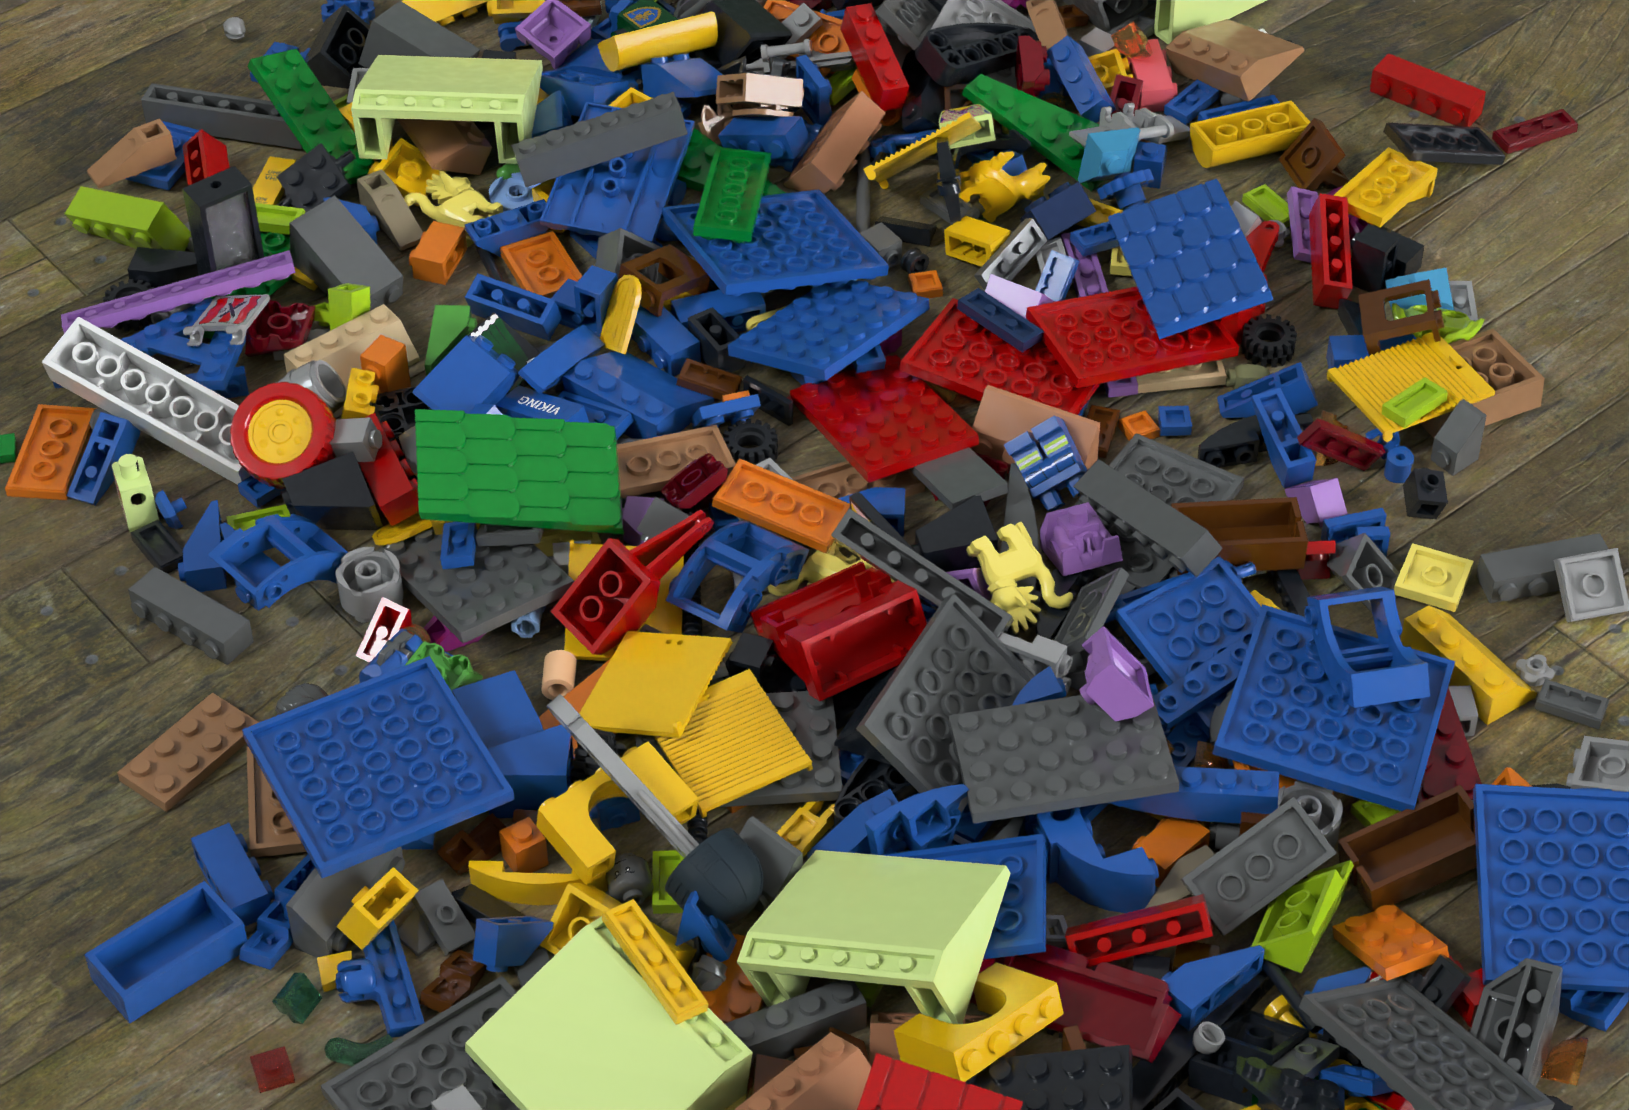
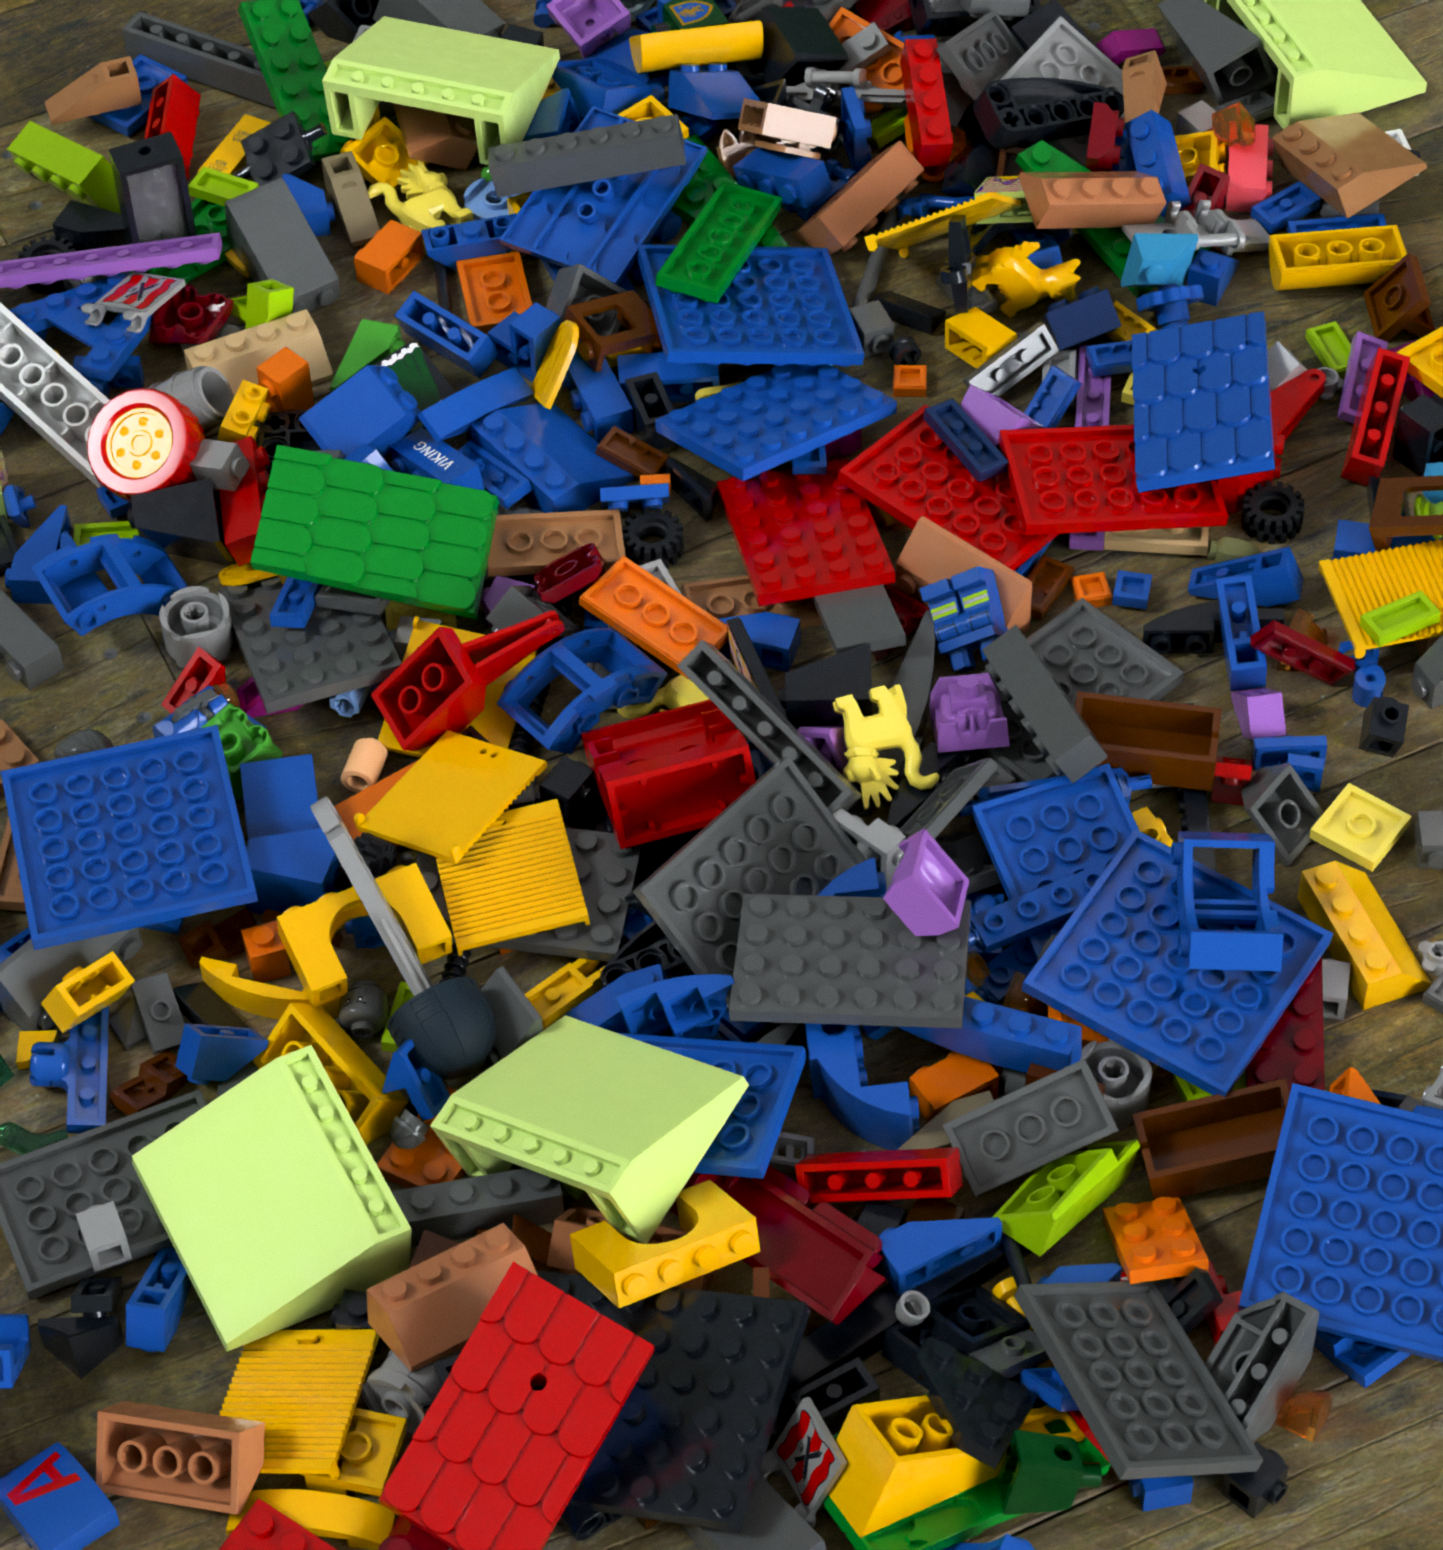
camera: 15 degrees right, 5 degrees up
(655, 961) = (337, 1110): yellow tile -> none
(1040, 113) = (1092, 198): none -> nougat slope

